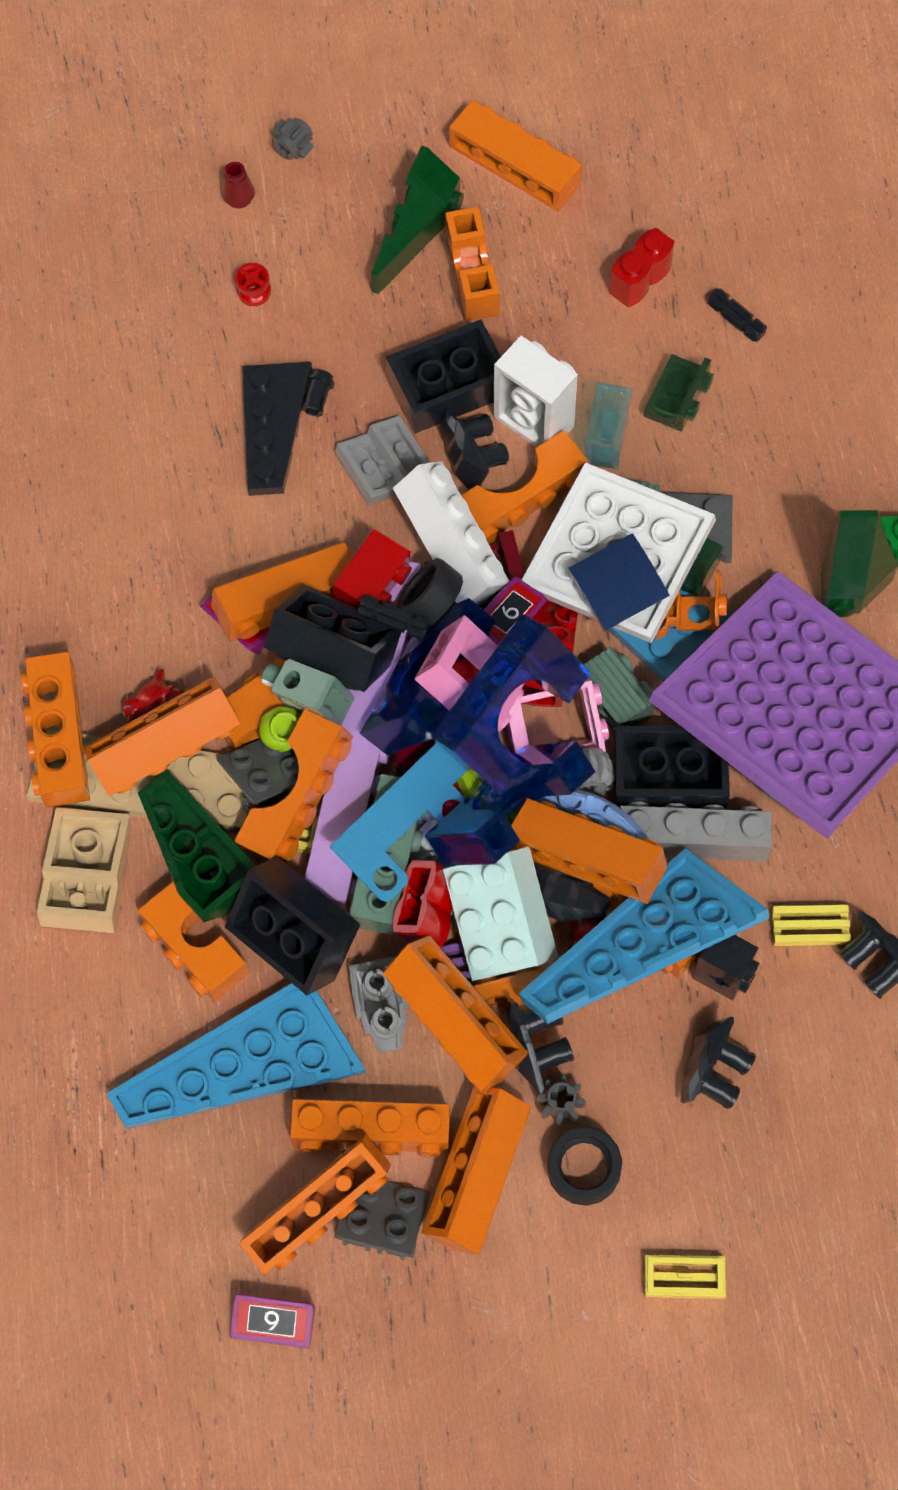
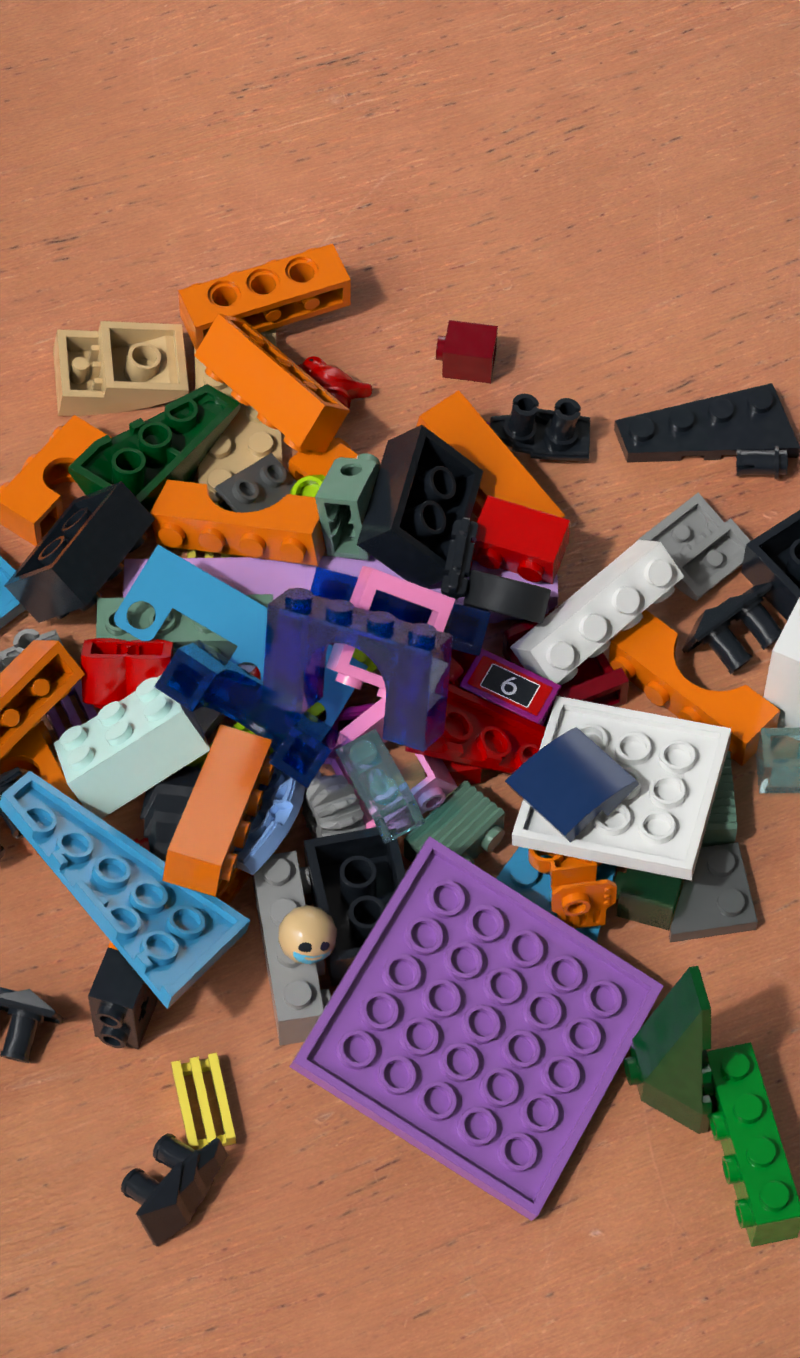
camera: 75 degrees right, 10 degrees down
(149, 583) = (468, 351): none -> dark red brick
(248, 542) = (544, 432): none -> black connector
(595, 720) = (380, 786): none -> clear light blue brick
(713, 804) = (307, 935): none -> tan piece

